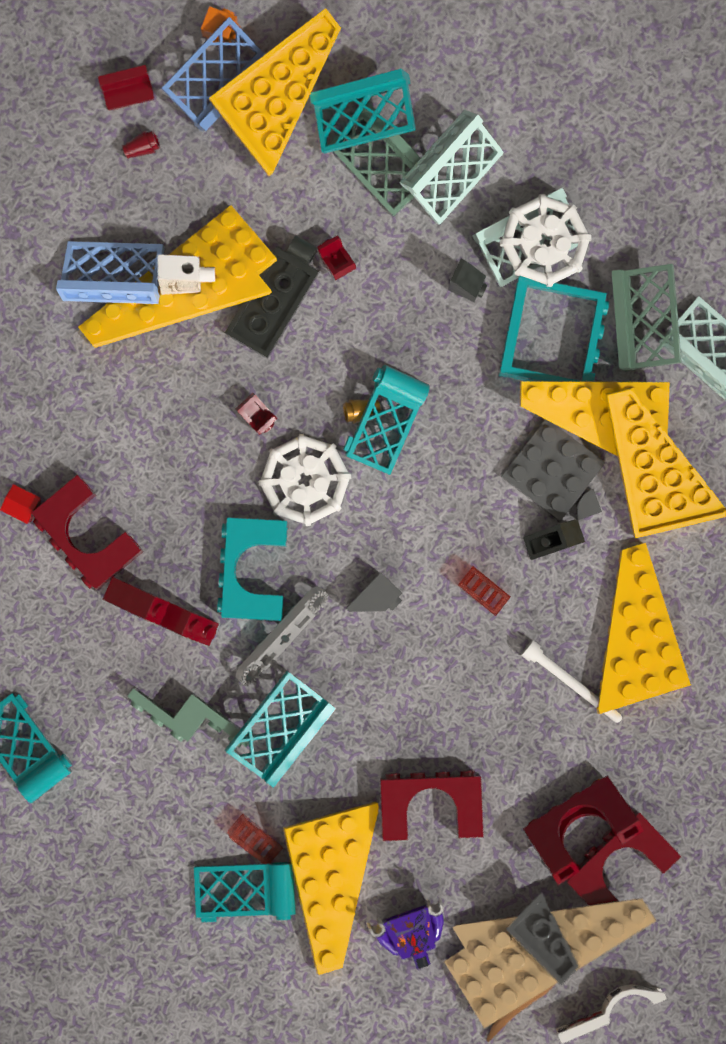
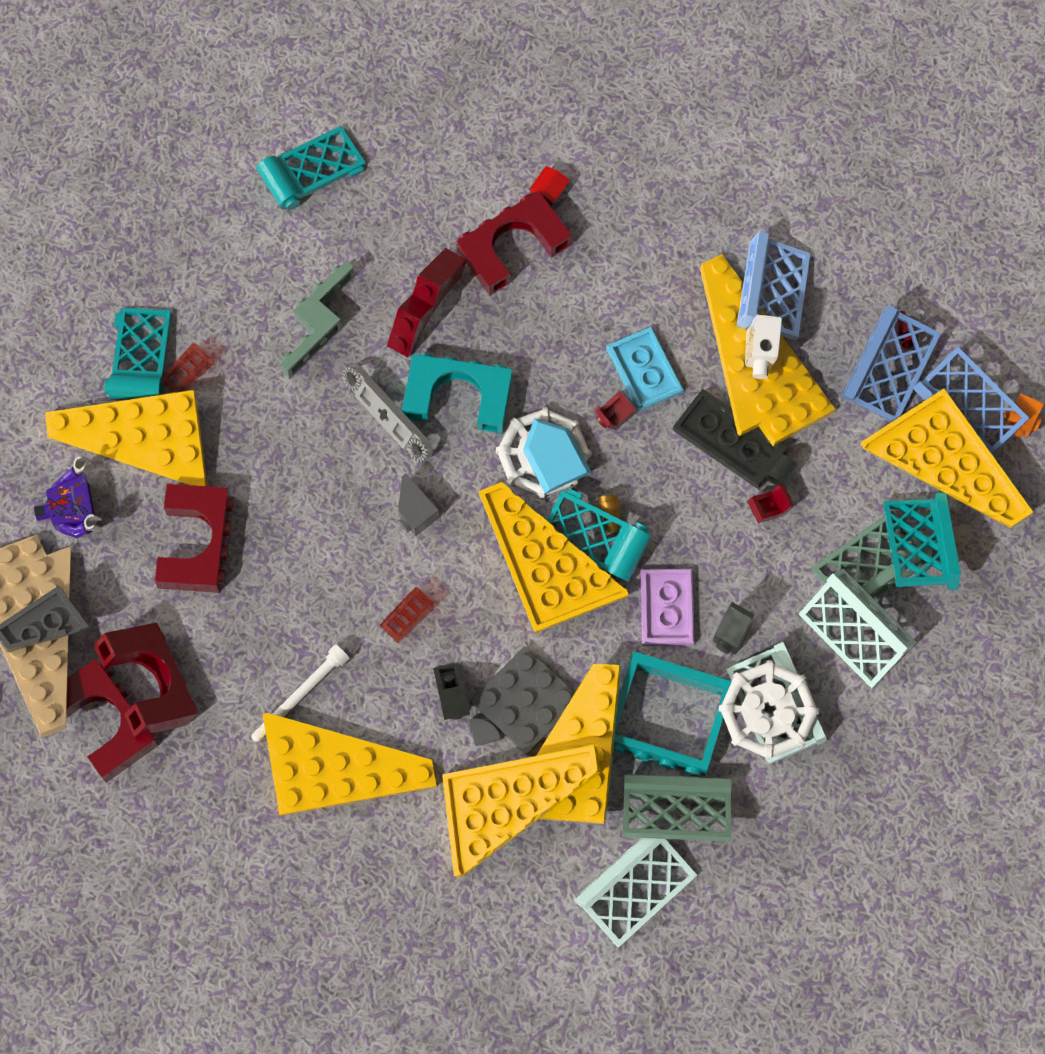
camera: 100 degrees right, 15 degrees down
(126, 87) = (964, 322): dark red panel -> none
(169, 170) = (871, 353): none -> medium blue fence
(206, 391) = (644, 369): none -> medium azure tile
(294, 743) = (278, 413): fence -> none
(310, 467) = (554, 455): none -> medium azure tile
(423, 463) = (548, 570): none -> yellow wing
(446, 347) = (667, 607): none -> lavender tile

